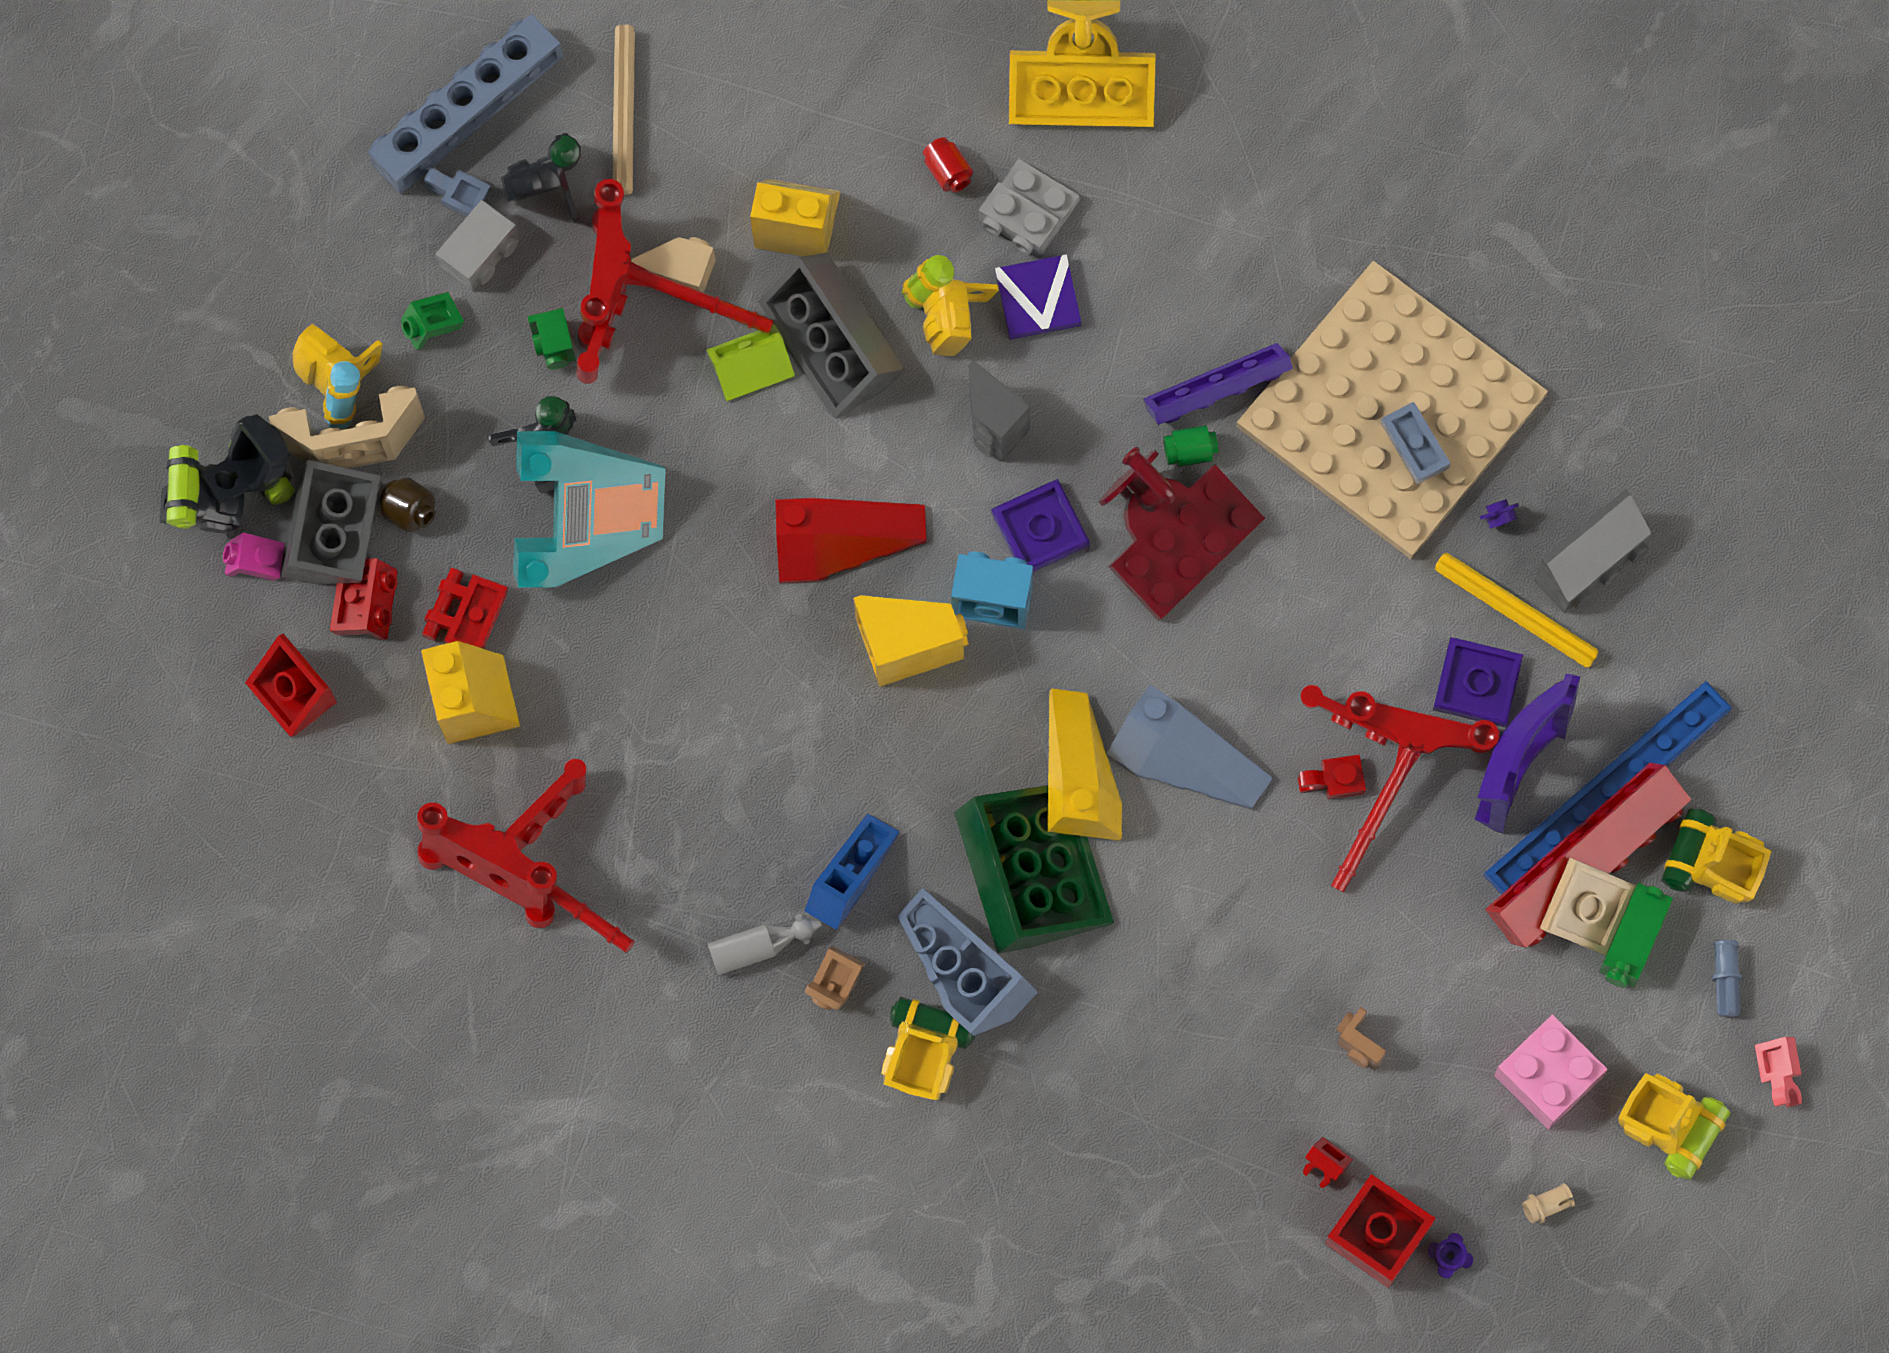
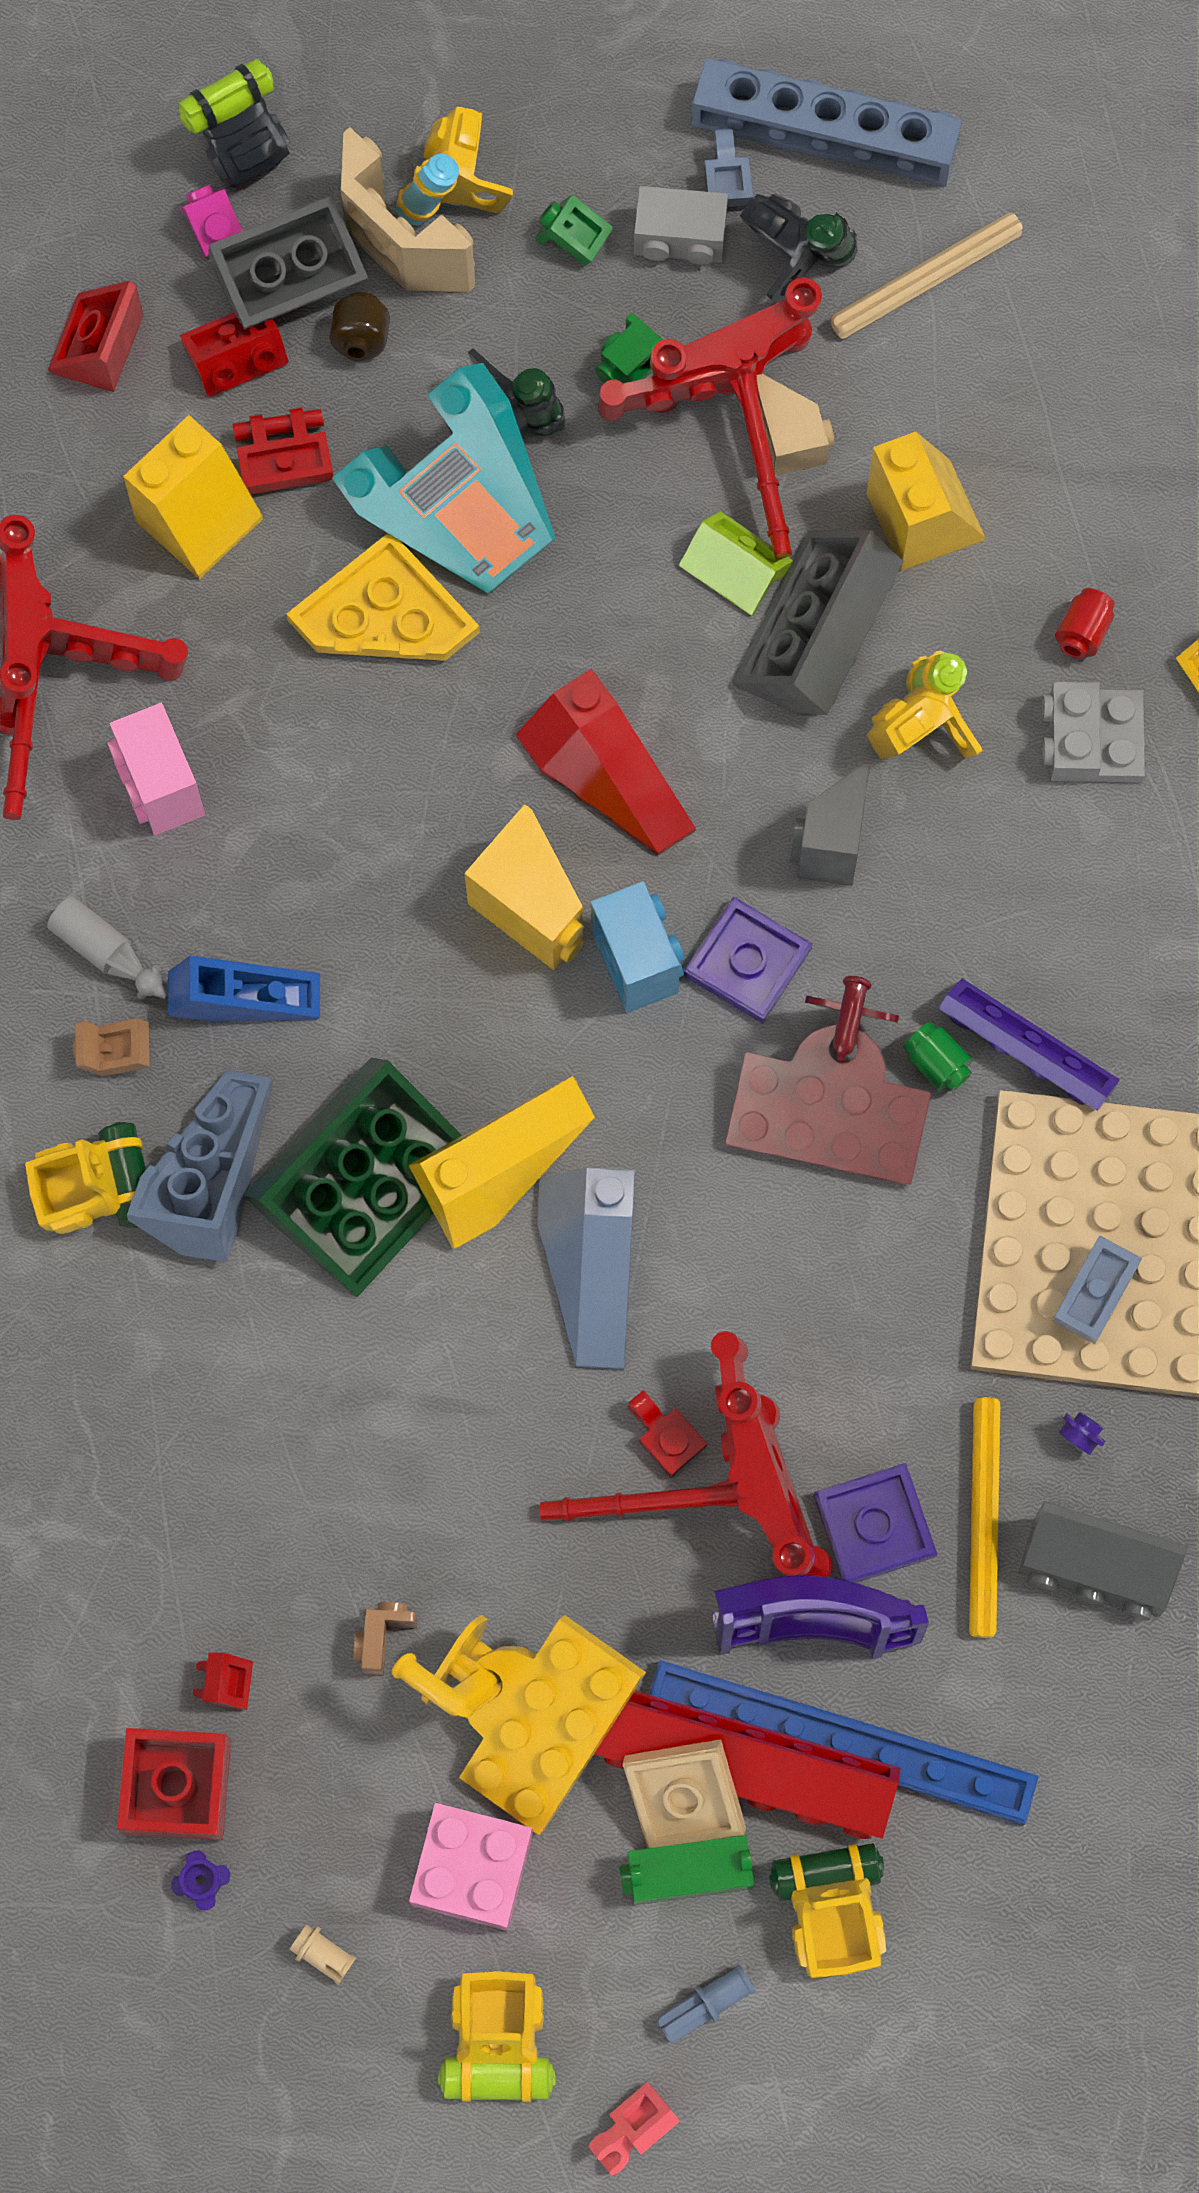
camera: 55 degrees right, 0 degrees up
(257, 459) = (304, 150): black piece -> none
(631, 612) = (384, 609): none -> yellow plate
(655, 831) = (154, 770): none -> bright pink brick
(1038, 297) = (1003, 803): dark purple tile -> none
(1476, 969) = (533, 1709): none -> yellow plate

